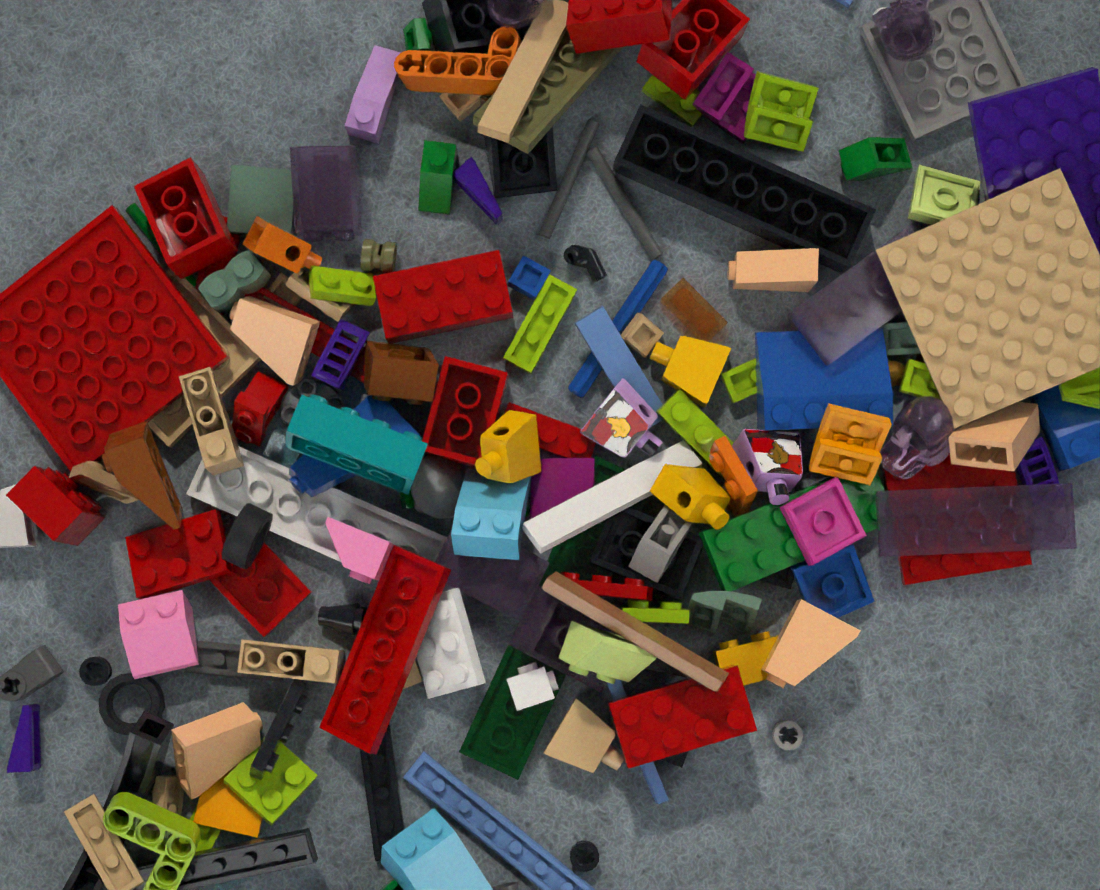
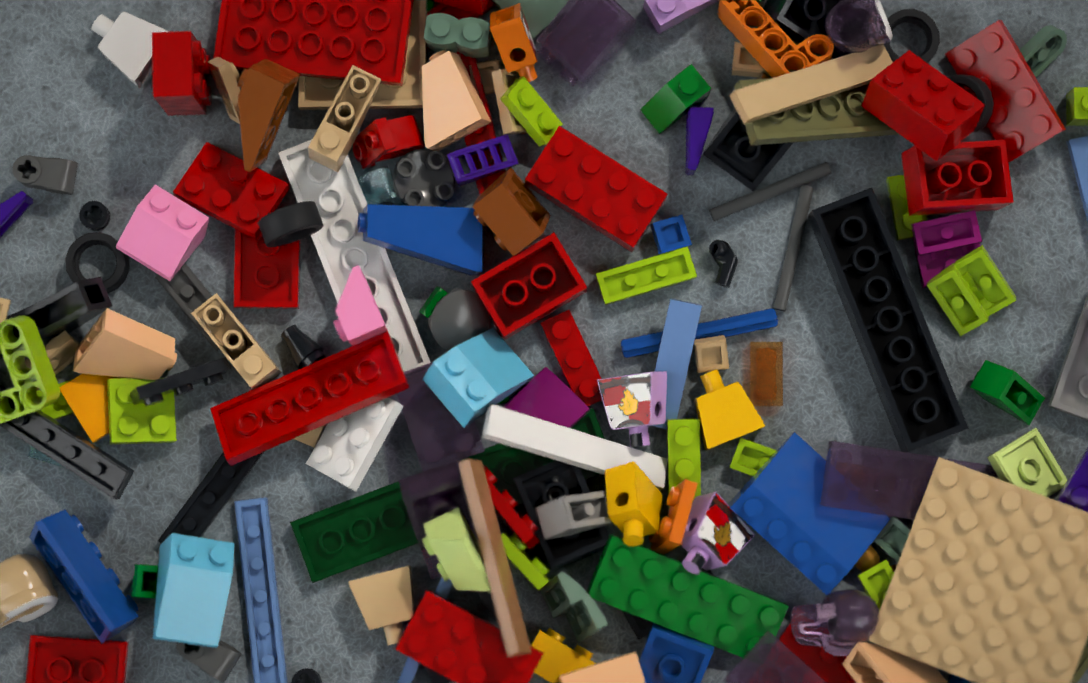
camera: 45 degrees right, 0 degrees up
(355, 443) = (428, 232): teal brick -> none
(378, 256) = (578, 115): olive wheel -> none
(510, 448) = (535, 343): yellow torso -> none
(532, 686) = (386, 526): white brick -> none
(775, 270) = (852, 400): light nougat slope -> none
(823, 521) = (707, 613): dark pink tile -> none
(849, 444) = (781, 577): light orange slope -> none

